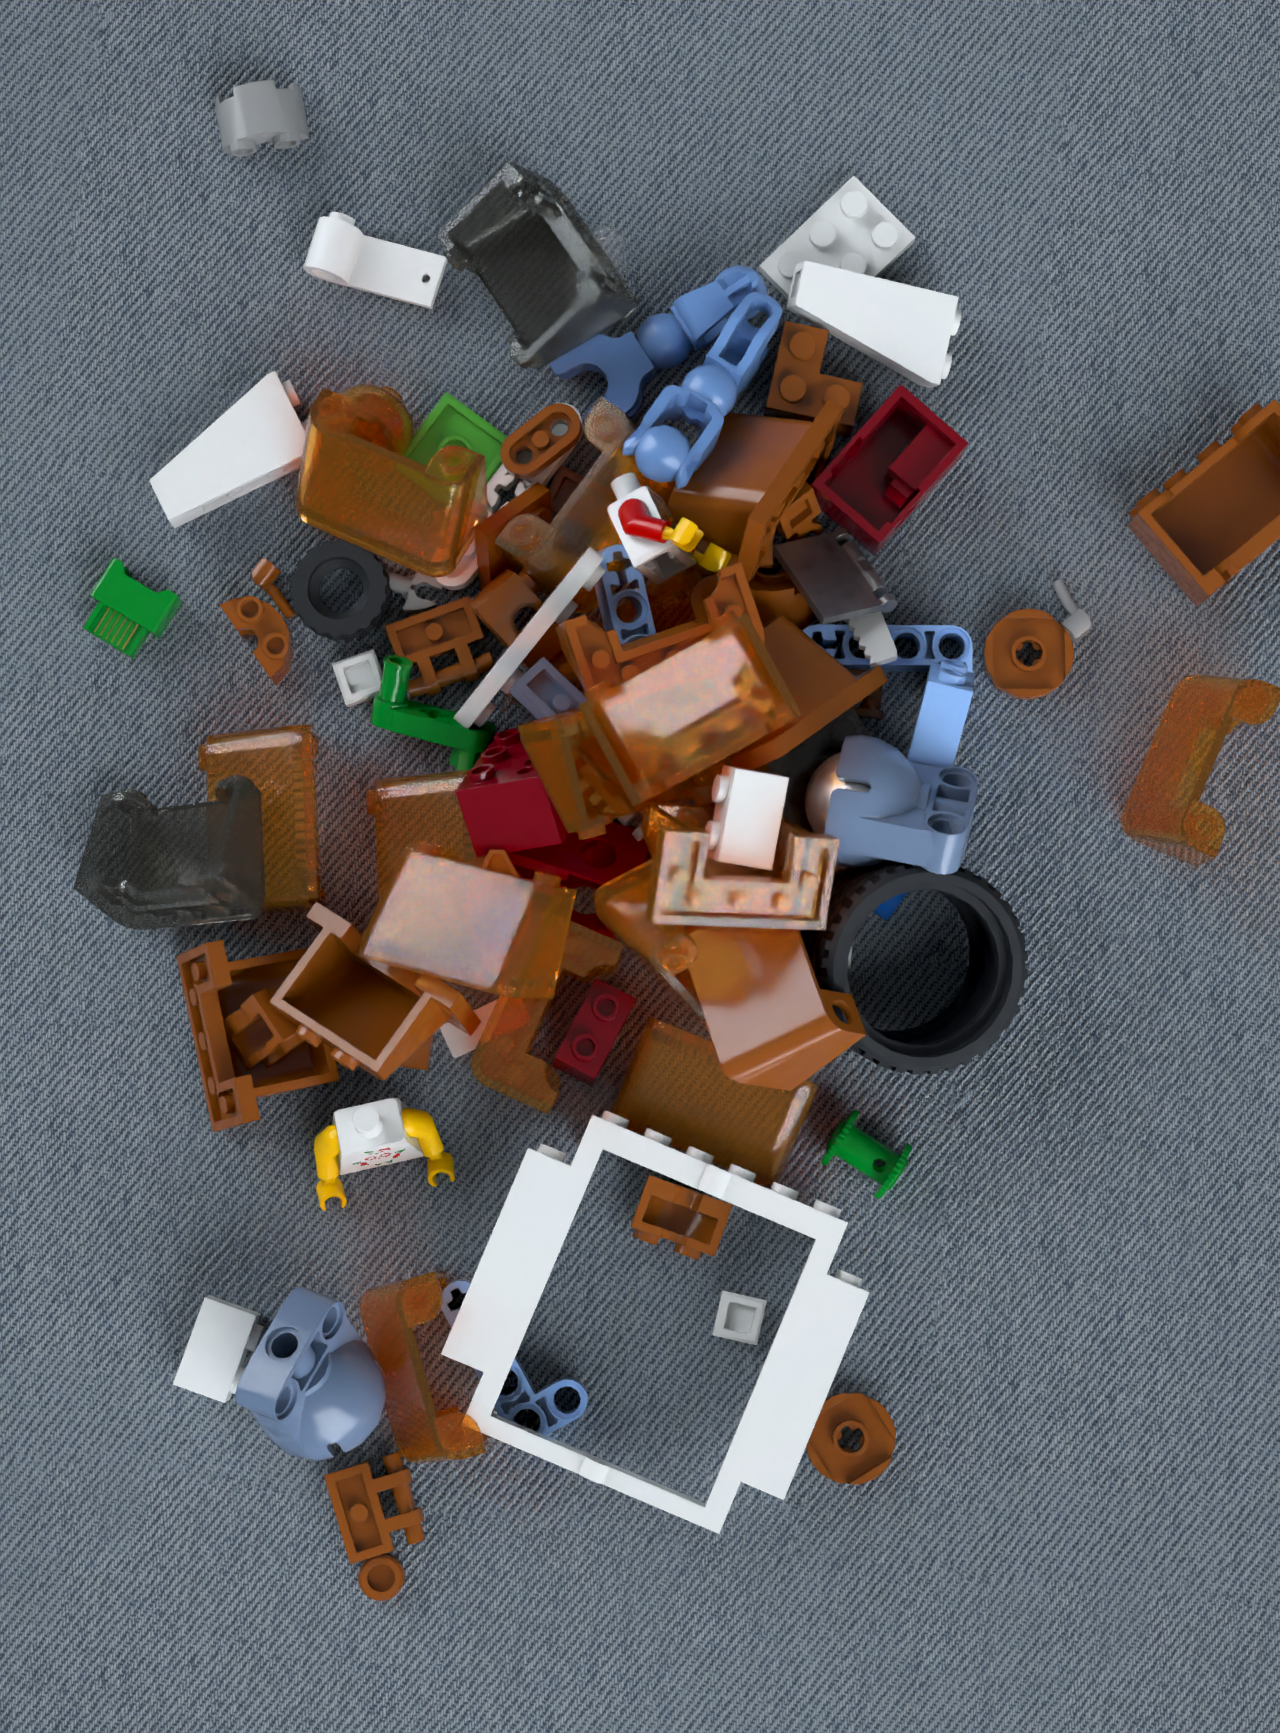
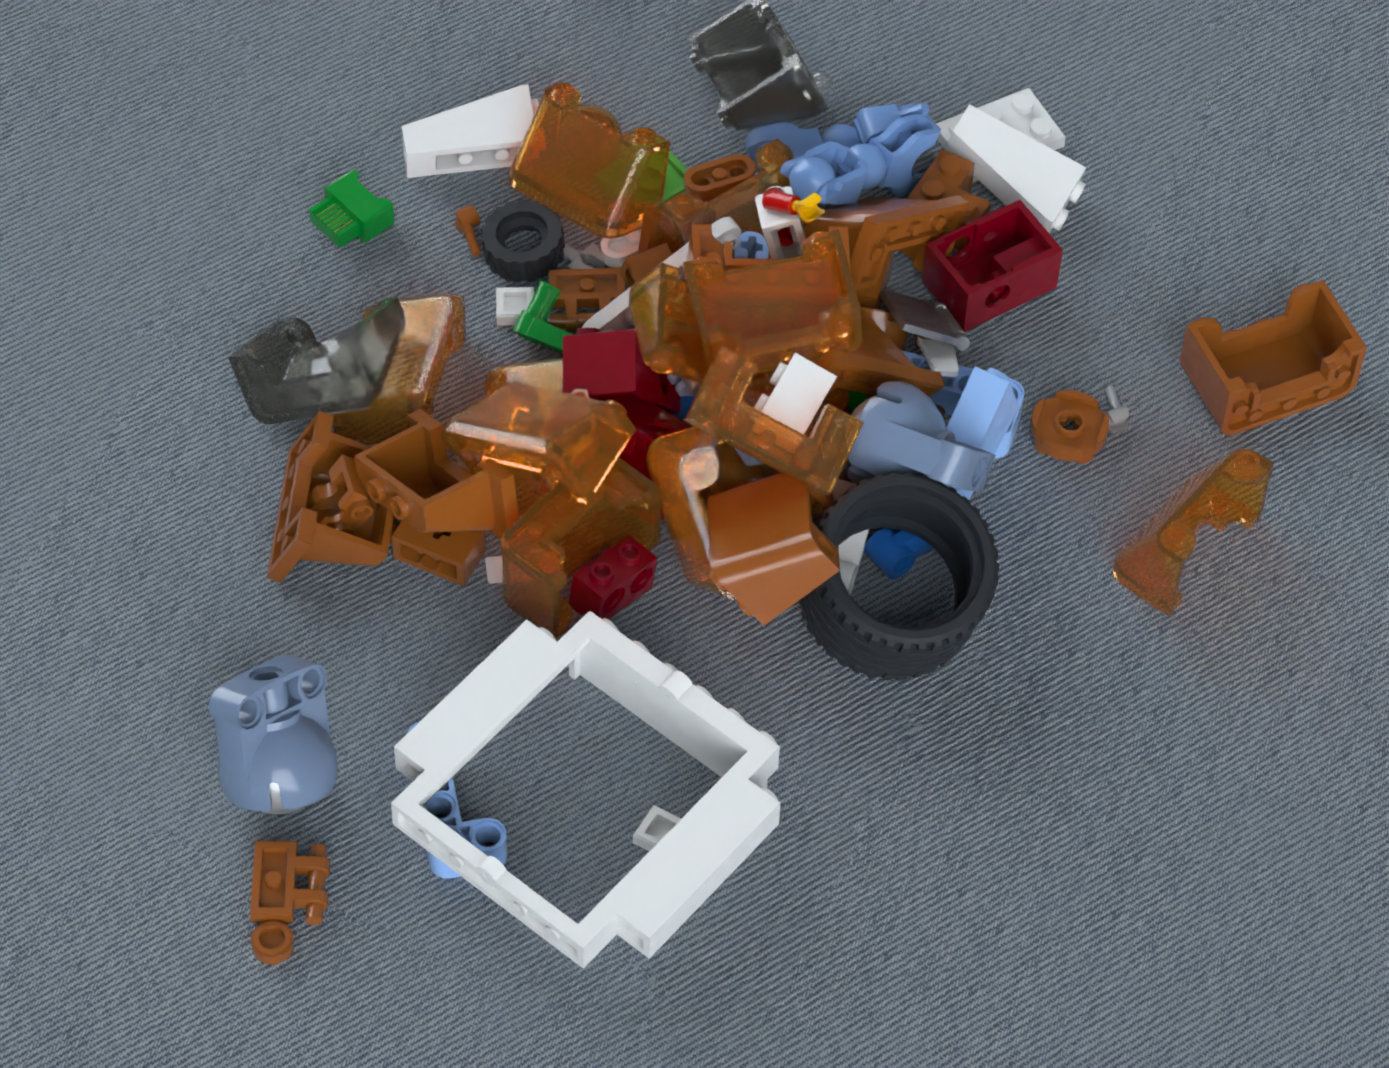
camera: 20 degrees right, 30 degrees down
(218, 1349) = (190, 730): white brick -> none
(261, 620) = (449, 243): dark orange cylinder -> none
(372, 265) = (610, 41): white door -> none
(376, 1137) = (400, 602): torso -> none
(388, 1321) = (367, 815): clear orange windscreen -> none
(681, 1217) = (633, 733): dark orange cylinder -> none
(683, 1094) = (709, 640): clear orange windscreen -> none
(800, 515) = (907, 270): dark orange plate -> none
(862, 1150) = (814, 731): green hose -> none
(876, 1443) = (721, 969): dark orange plate -> none

